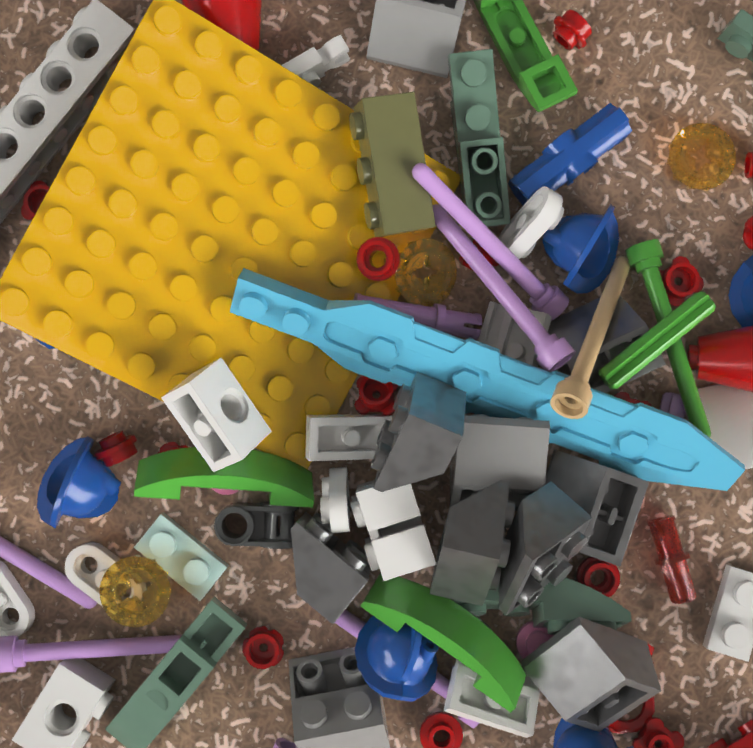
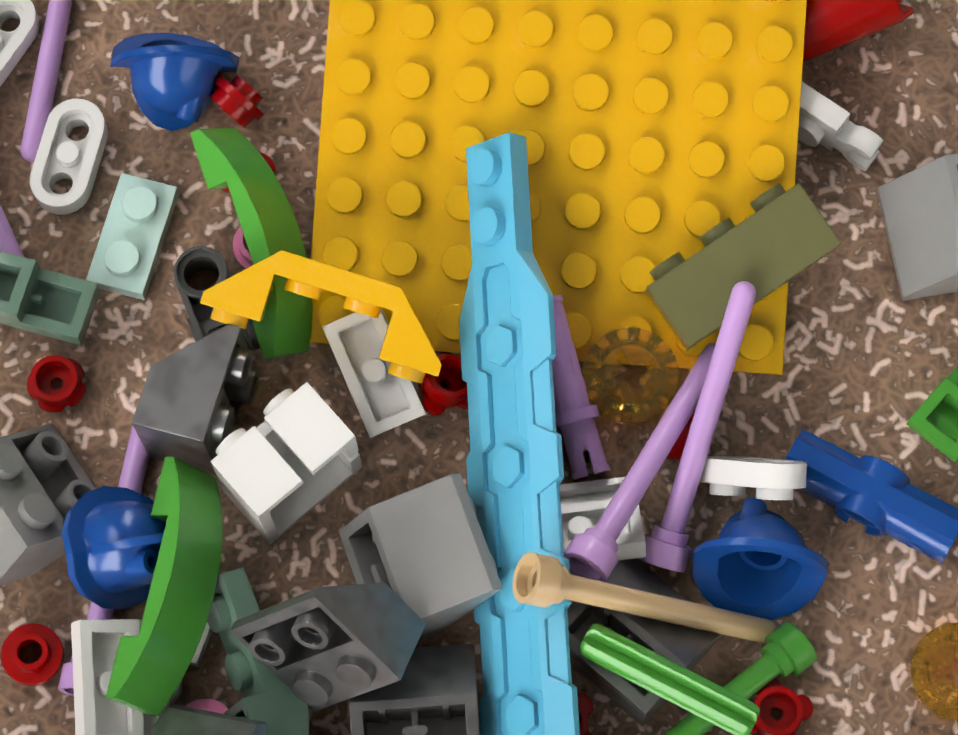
camera: 70 degrees right, 15 degrees down
(132, 611) = (69, 167): clear yellow gear -> none
(217, 415) = (333, 183): white brick -> none
(270, 508) = (248, 292): none -> yellow slope
(336, 500) = (277, 373): white plate -> none
(365, 255) = (615, 287): red plate -> none
(420, 434) = (418, 424): flat silver slope -> none
(474, 545) = (299, 546): flat silver slope -> none
(478, 136) = (835, 369): sand green slope -> none

